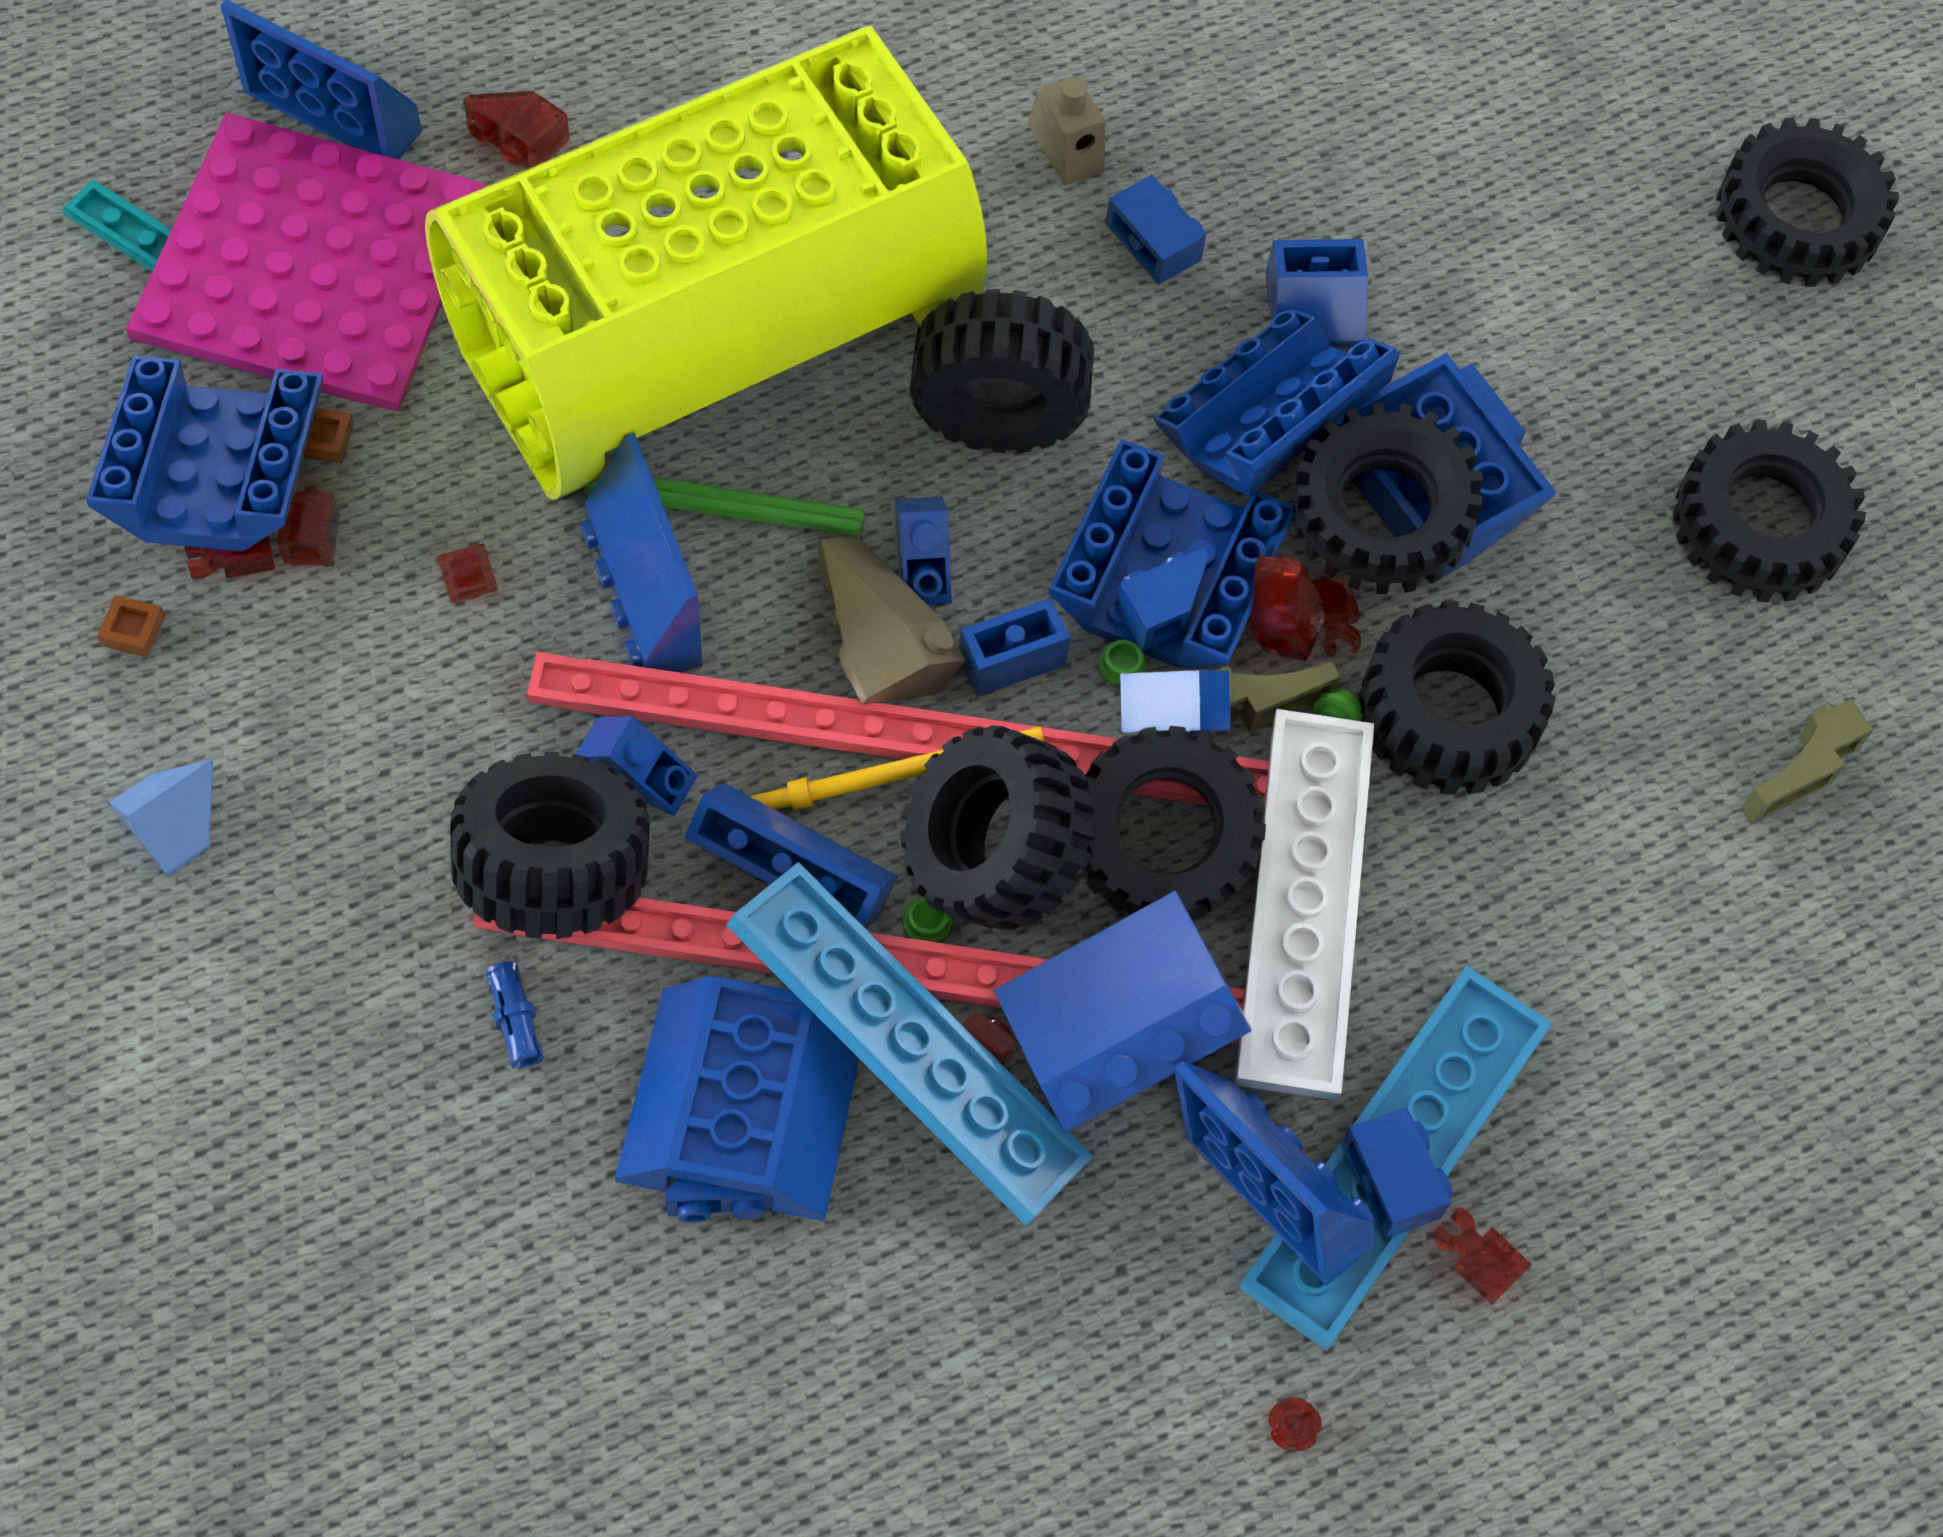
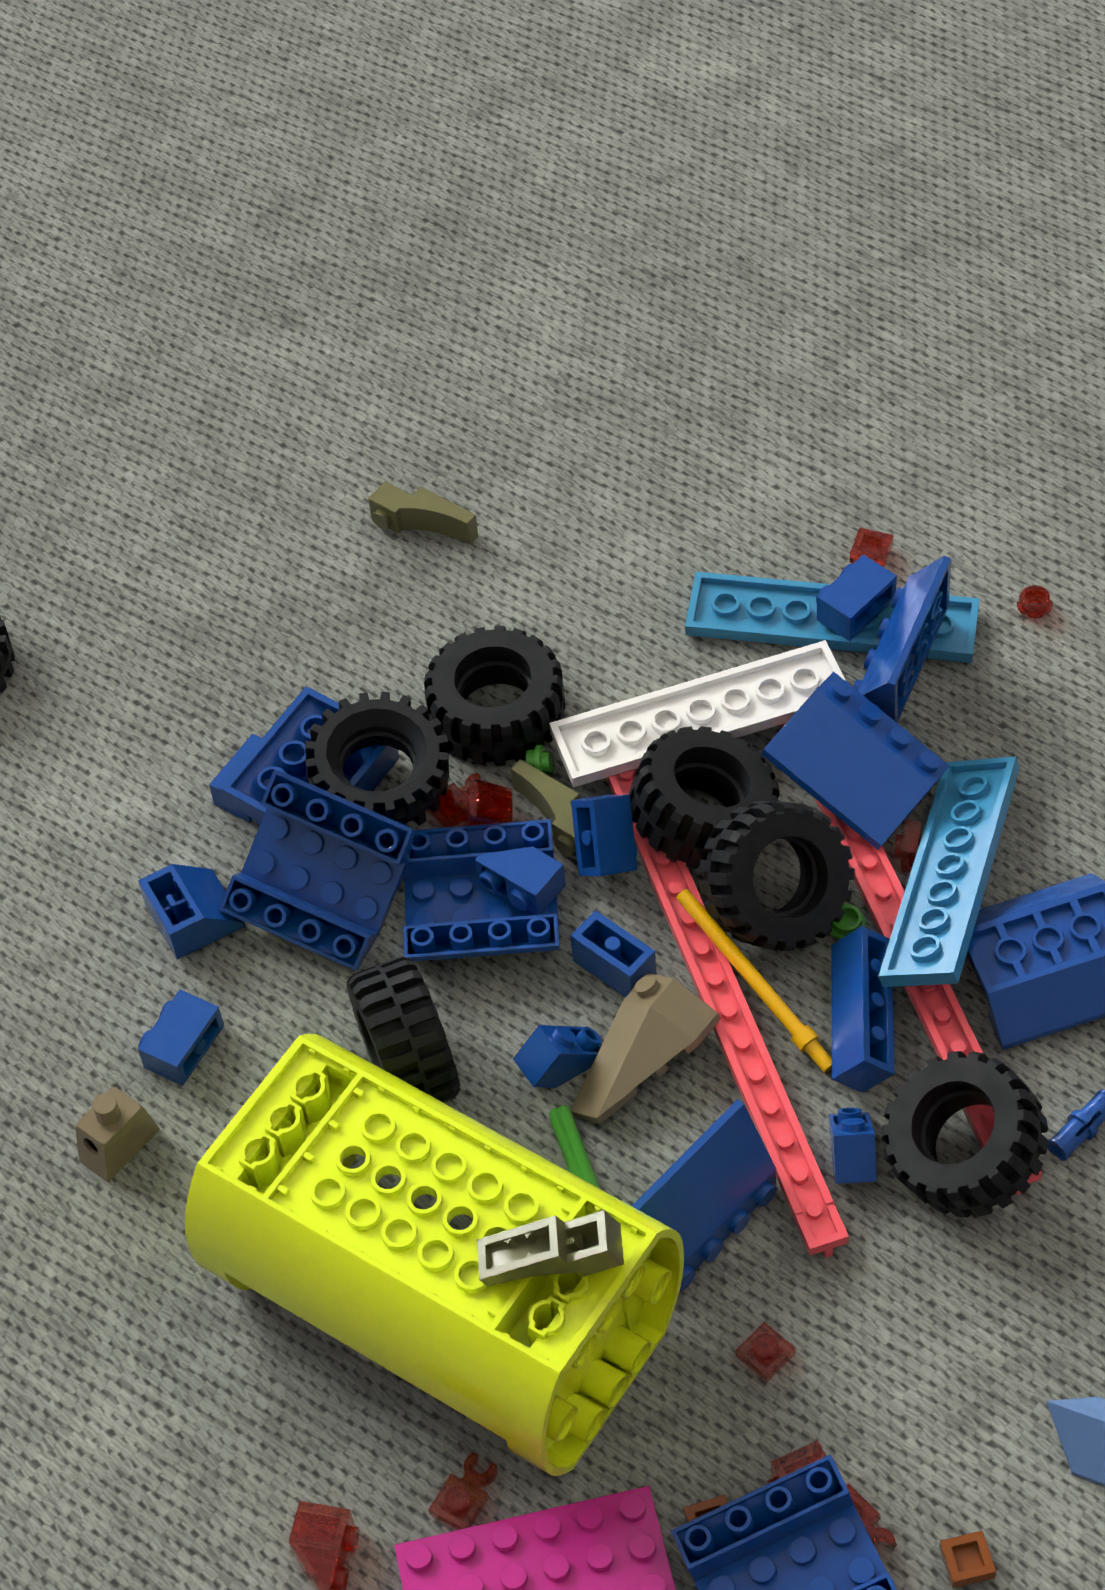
camera: 105 degrees left, 10 degrees down
(553, 243) = (551, 1247): none -> olive slope
(1120, 658) = (576, 901): bright green plate -> none
(1749, 556) = (242, 624): black tyre -> none

